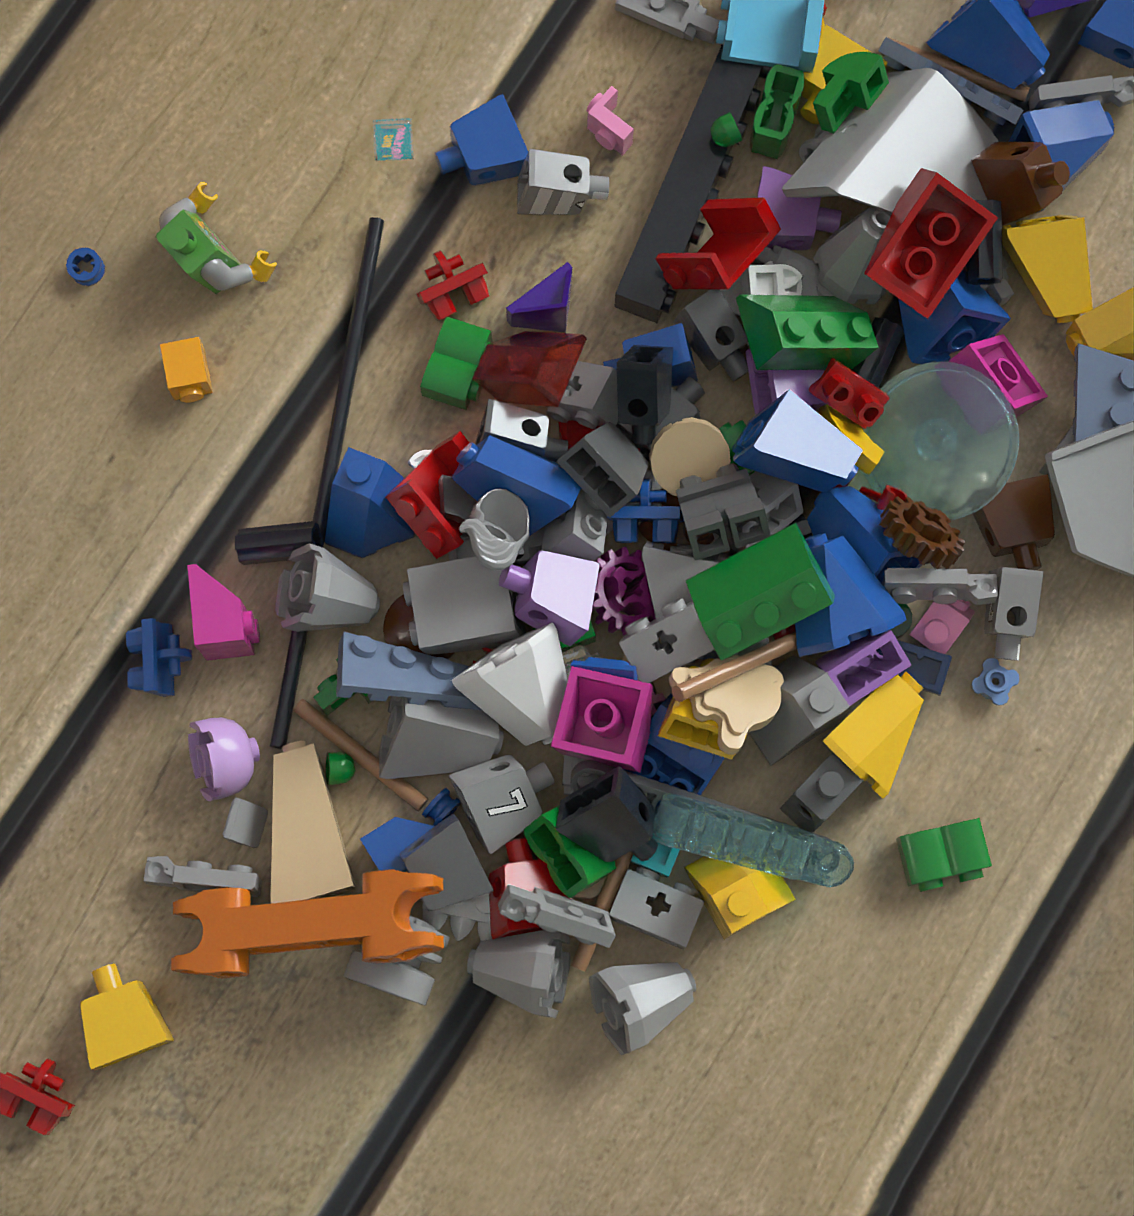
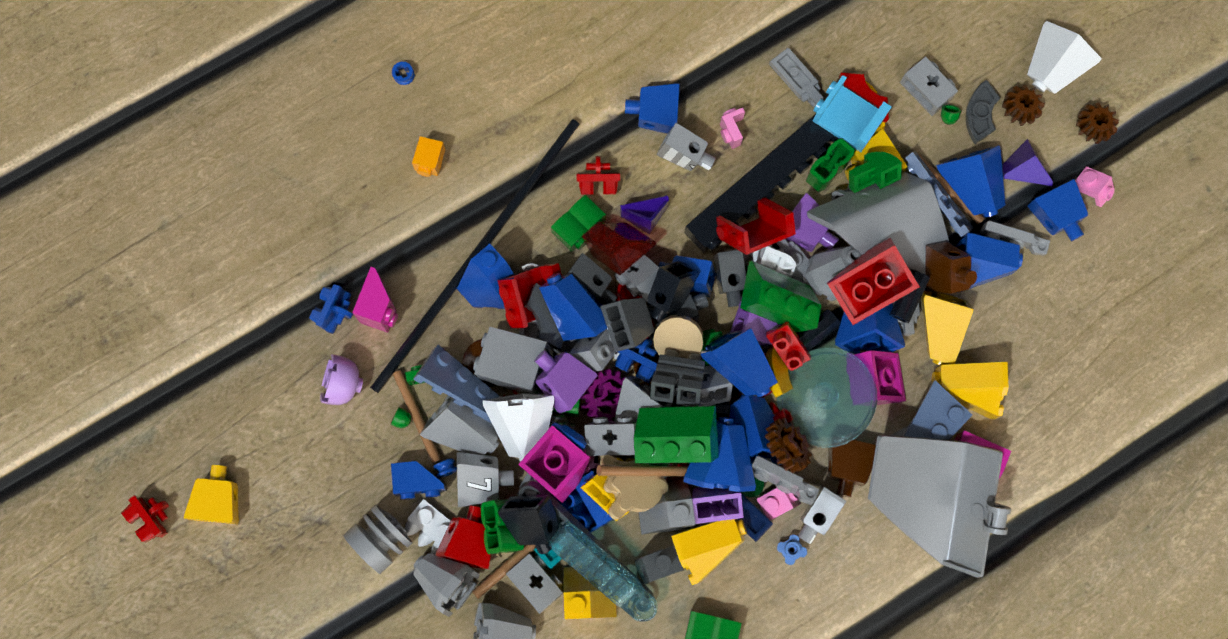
camera: 25 degrees right, 0 degrees up
(200, 876) = (296, 442): light grey hinge -> none
(201, 251) = (468, 93): torso -> none
(245, 823) = (334, 423): light grey slope -> none
(275, 541) = (430, 277): black axle -> none
(306, 836) = (365, 444): tan slope -> none
(323, 593) = (439, 317): light grey cone -> none
(372, 919) = (372, 512): orange piece -> none
(393, 139) = (607, 80): clear tile -> none
(449, 855) = (425, 502): dark grey torso -> none
(497, 528) = (548, 328): light grey hair -> none
(558, 913) = (476, 559): light grey hinge -> none
(725, 131) = (793, 163): green hinge -> none

